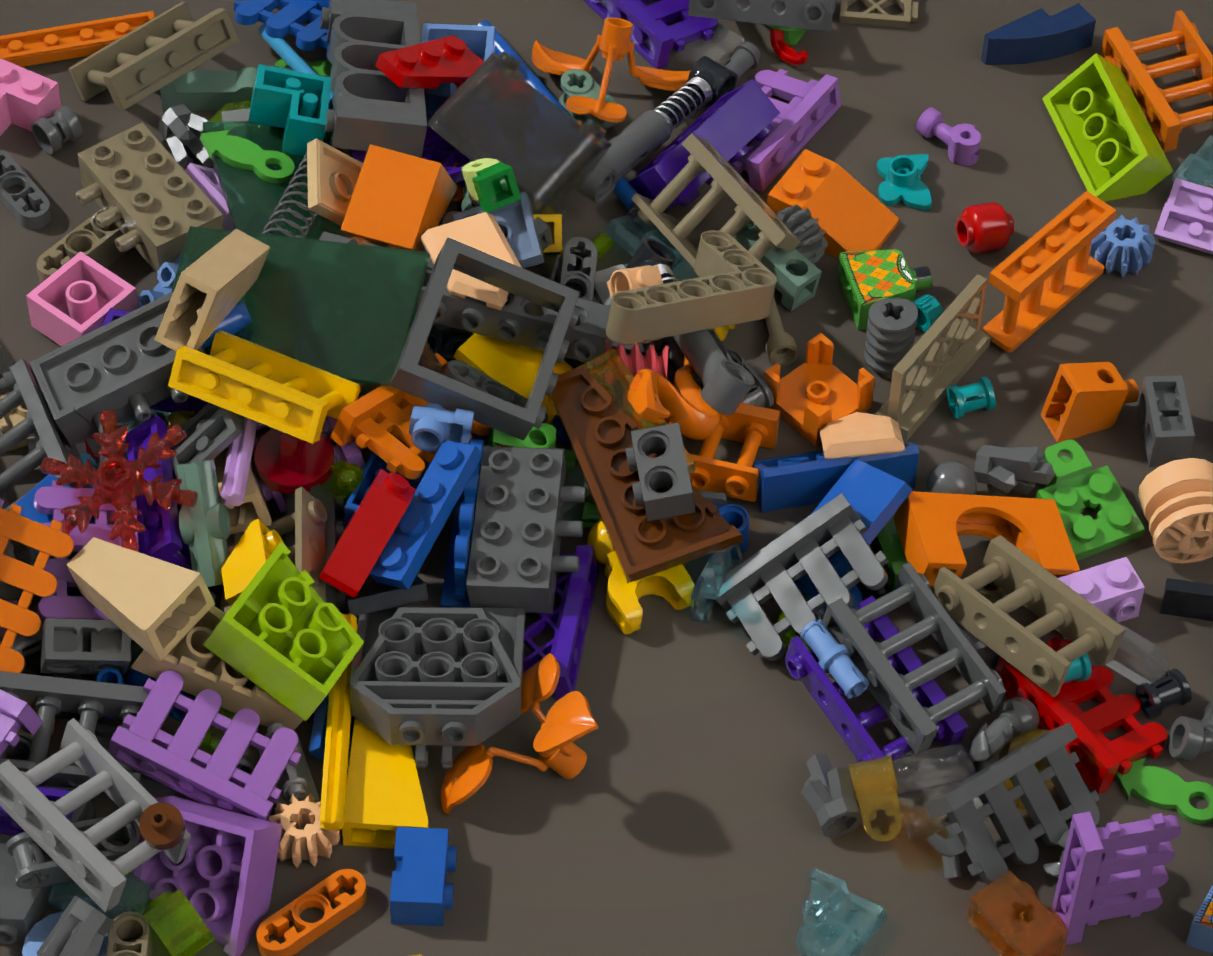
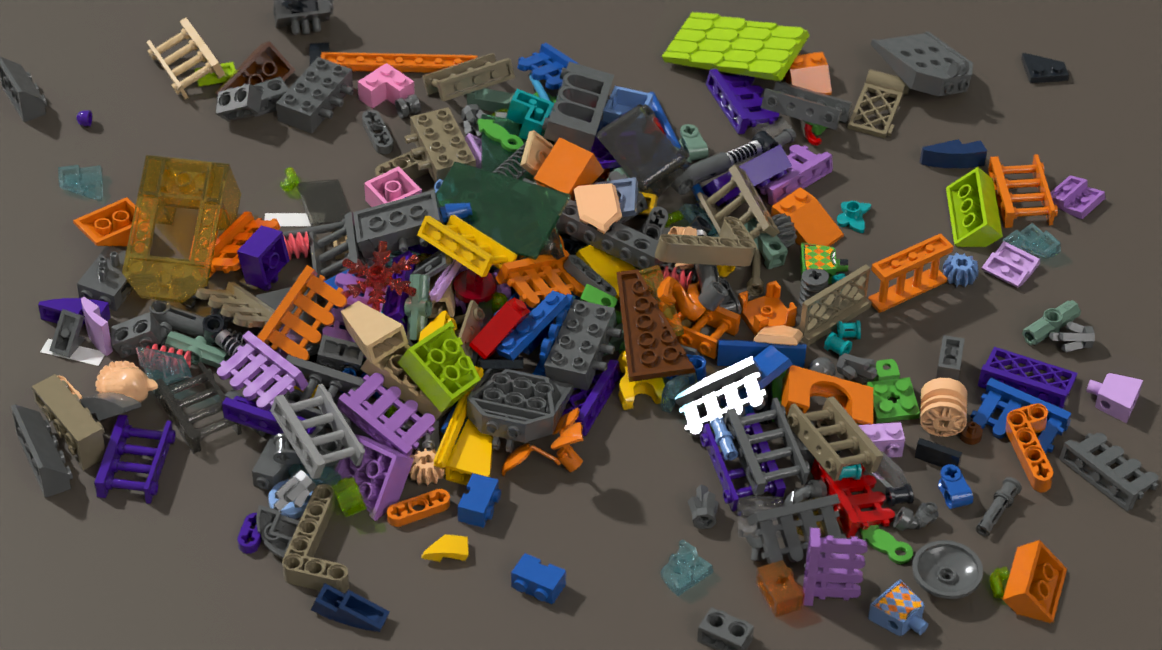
camera: 15 degrees right, 5 degrees down
(162, 826) = (351, 443): reddish brown tile -> none
(211, 290) = (452, 191): tan slope -> none
(430, 63) = (606, 104): red wing -> none
(434, 424) = (550, 282): medium blue plate -> none
(453, 394) = (569, 272): dark grey window -> none
(491, 183) = (618, 169): green leg -> none
(614, 45) = (713, 114): orange plant -> none
(664, 471) = (661, 328): dark grey brick -> none
(877, 789) = (726, 508): clear yellow piece -> none
(961, 139) = (891, 199): medium lavender leg -> none
(962, 430) = (837, 344): none -> teal bush
(984, 227) = (886, 245): red head -> none
(1086, 399) = (910, 341): orange torso -> none

